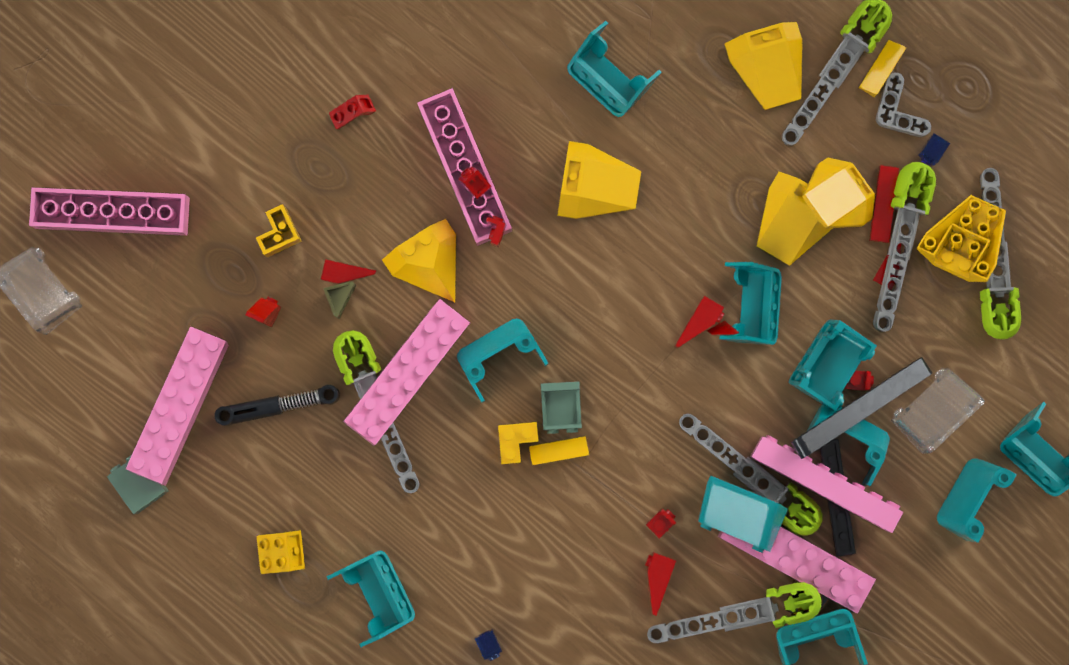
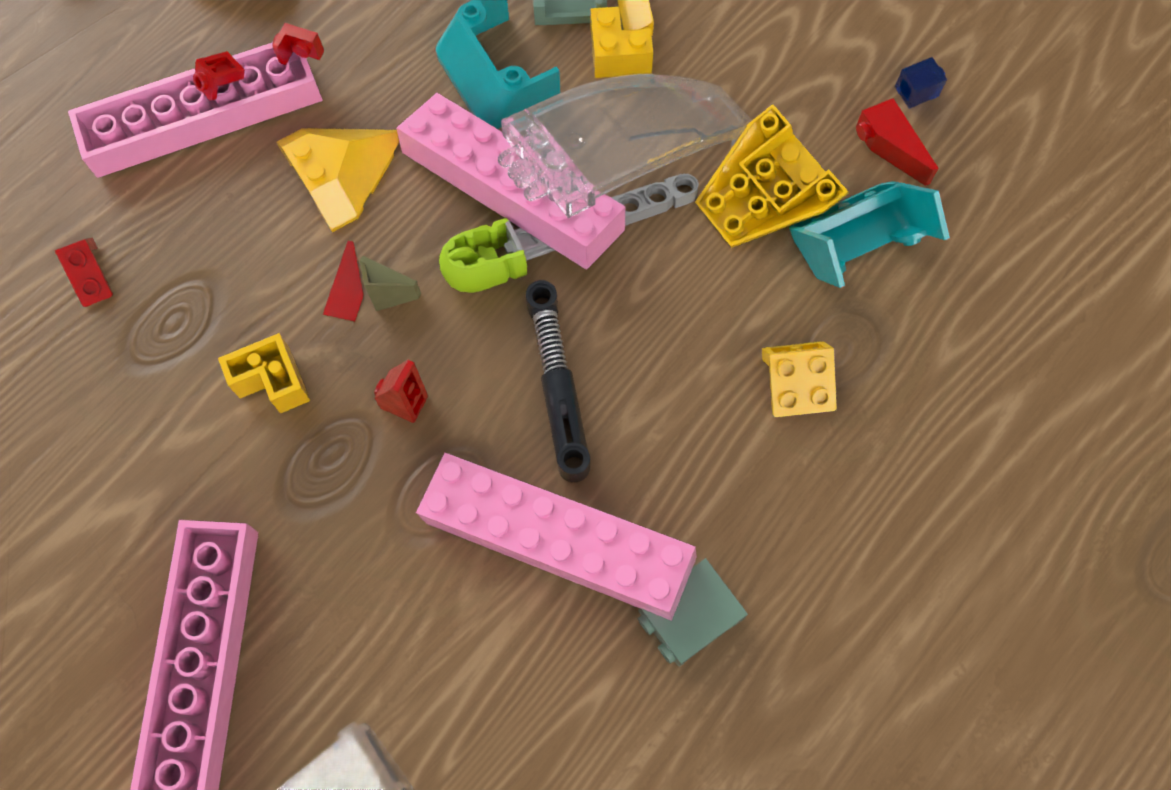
camera: 90 degrees left, 15 degrees down
(410, 539) = (767, 183): none -> yellow wedge
(427, 445) = (613, 134): none -> clear windscreen
(448, 620) = (894, 140): none -> red slope

